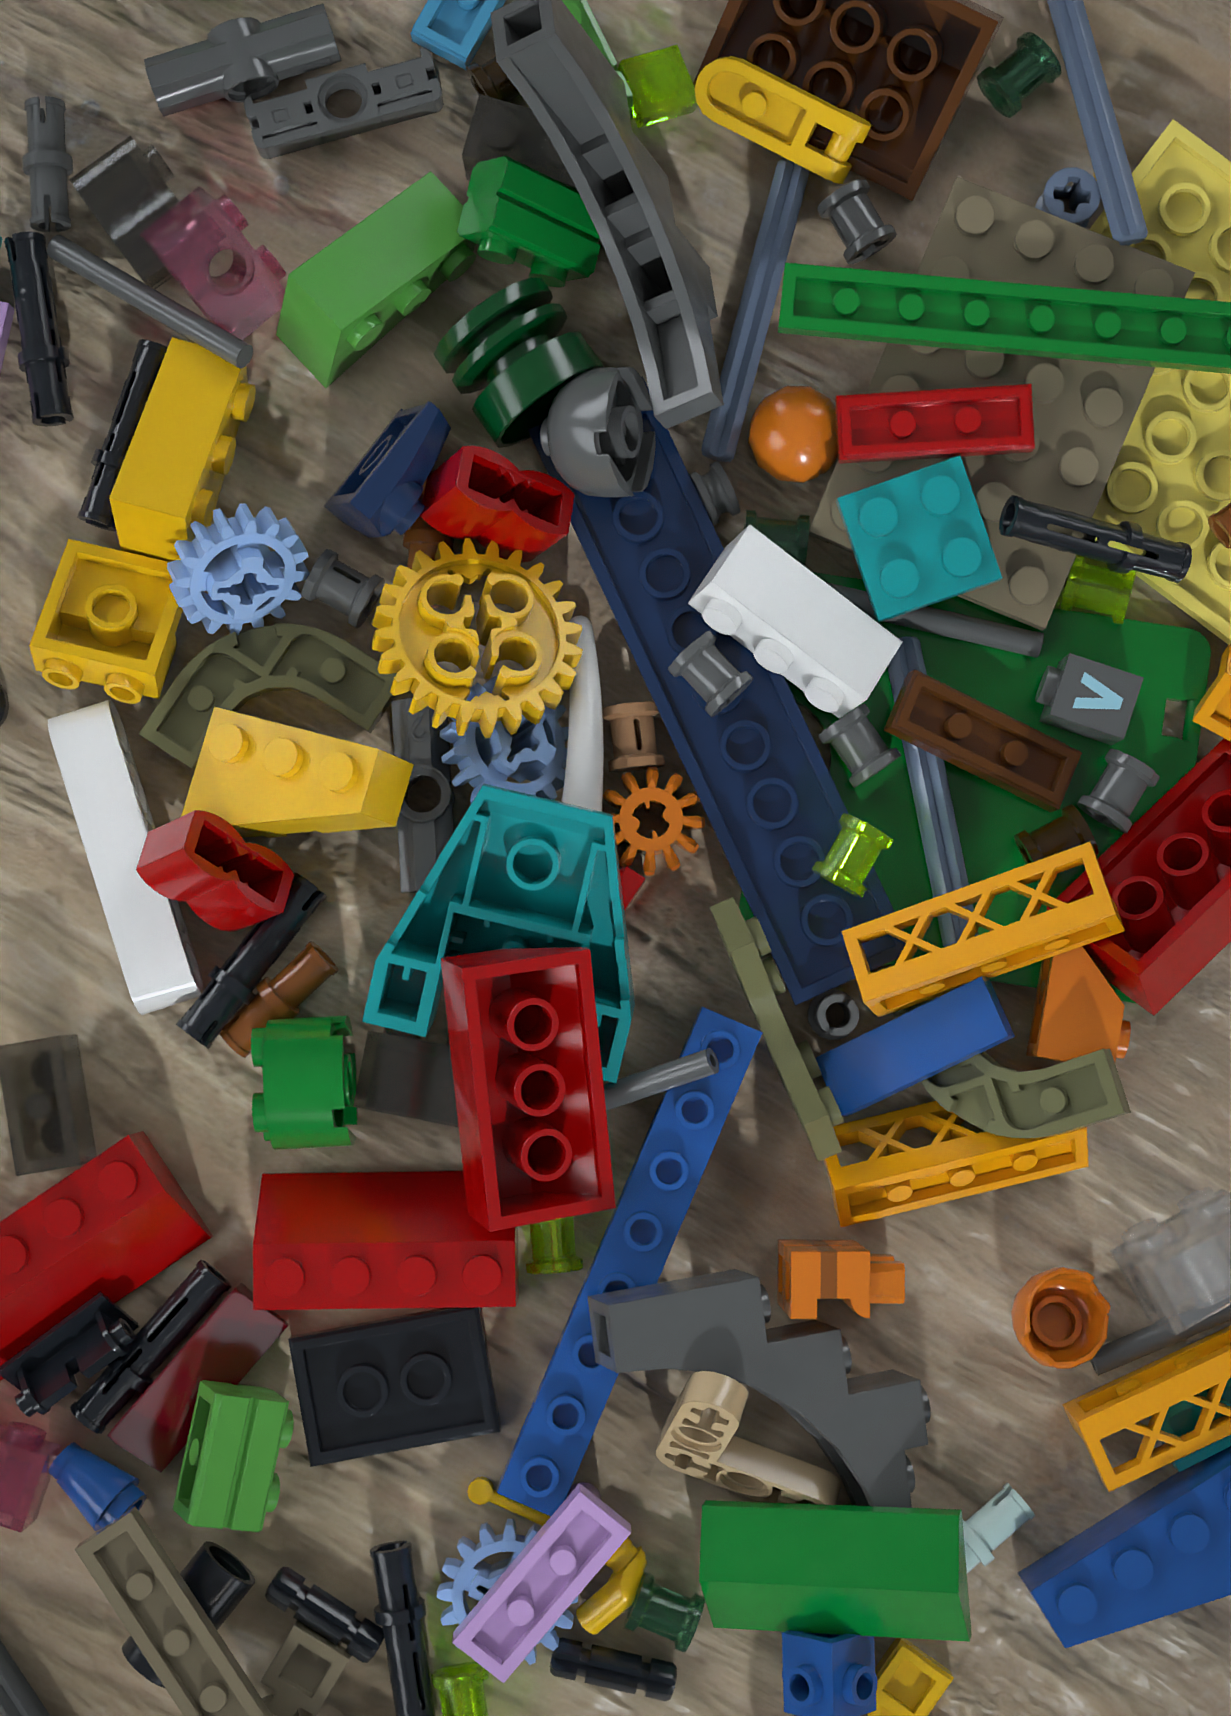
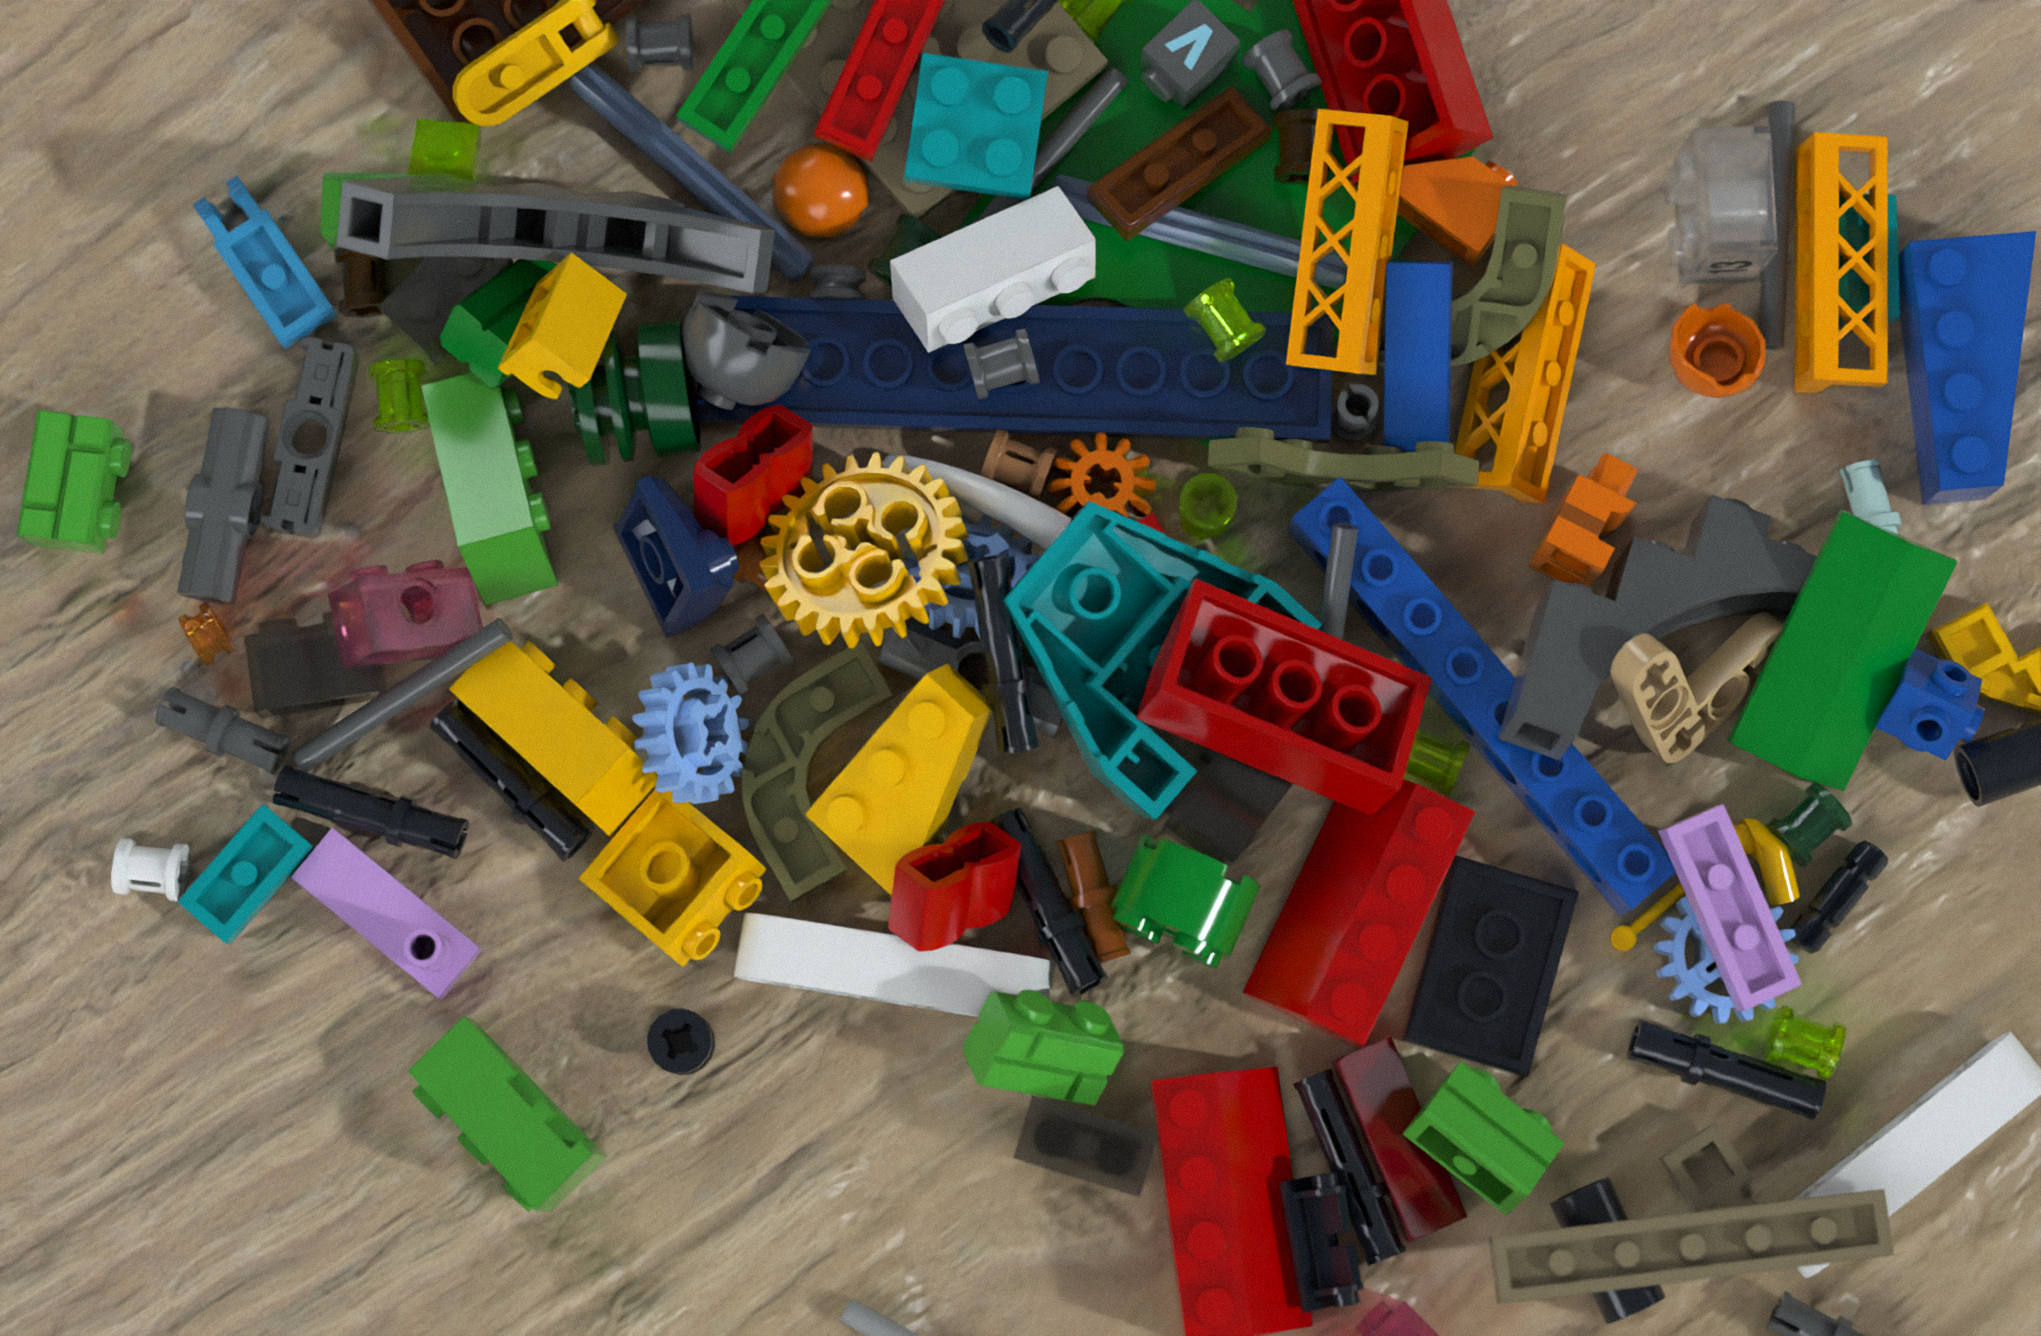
camera: 65 degrees left, 5 degrees down
(96, 1486) = (1452, 1278): blue cone -> none
(110, 1023) = (1043, 1047): none -> bright green brick
(123, 105) = (207, 633): none -> clear orange bush
(325, 1614) = (1666, 1130): black axle -> none
(418, 156) = (399, 395): none -> clear neon green bush
(420, 825) = (1005, 667): none -> black pin
(533, 263) = (563, 327): none -> yellow hinge
(696, 912) = (1200, 488): none -> clear neon green bush
(859, 745) = (1128, 271): dark grey bush -> none

